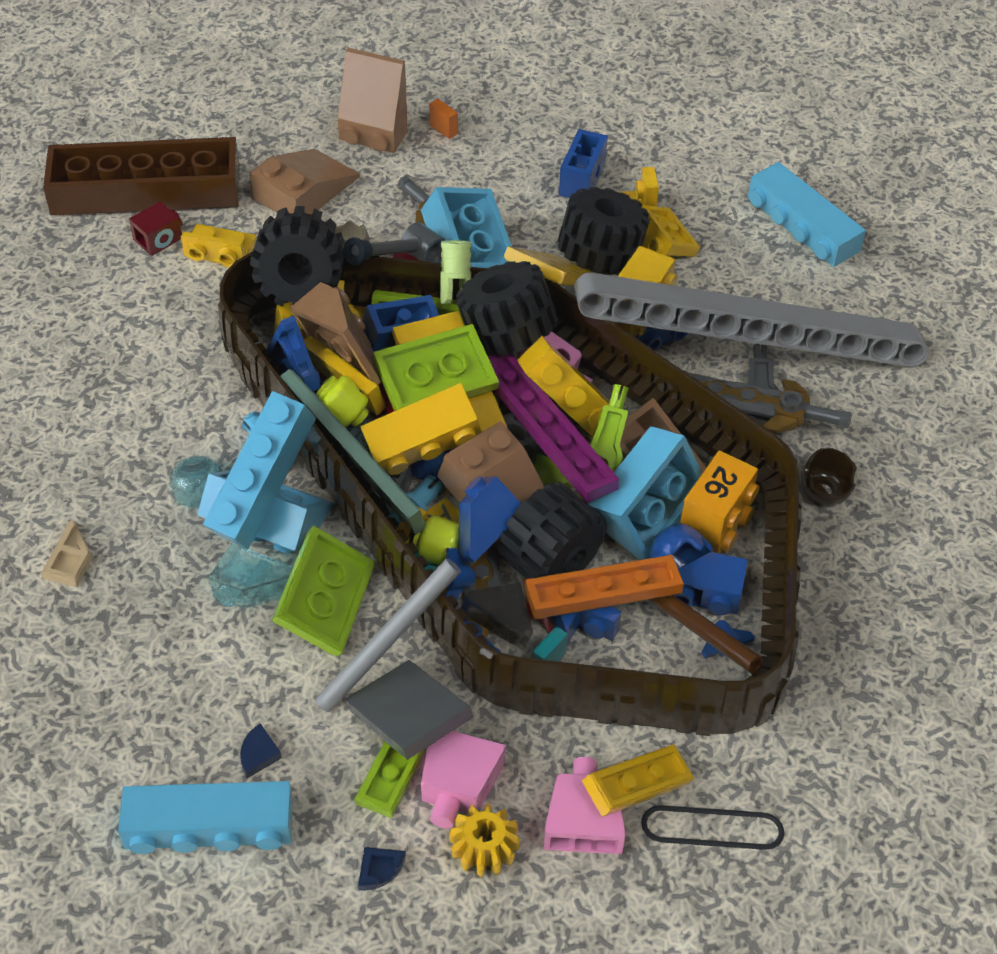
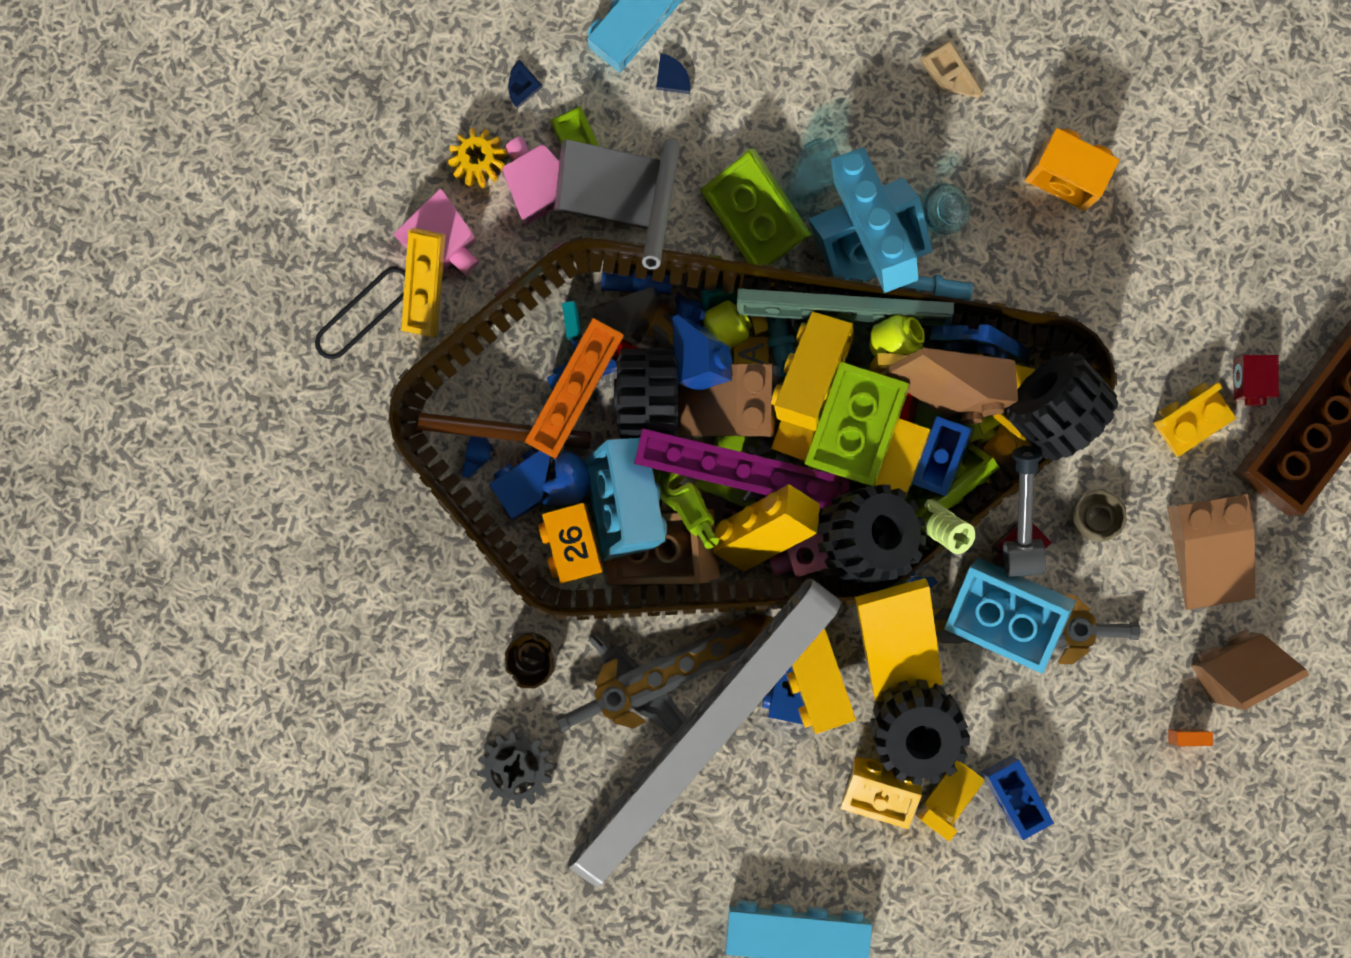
camera: 135 degrees right, 35 degrees up
(89, 410) = (1072, 168): none -> light orange brick
(909, 432) = (499, 765): none -> dark grey gear

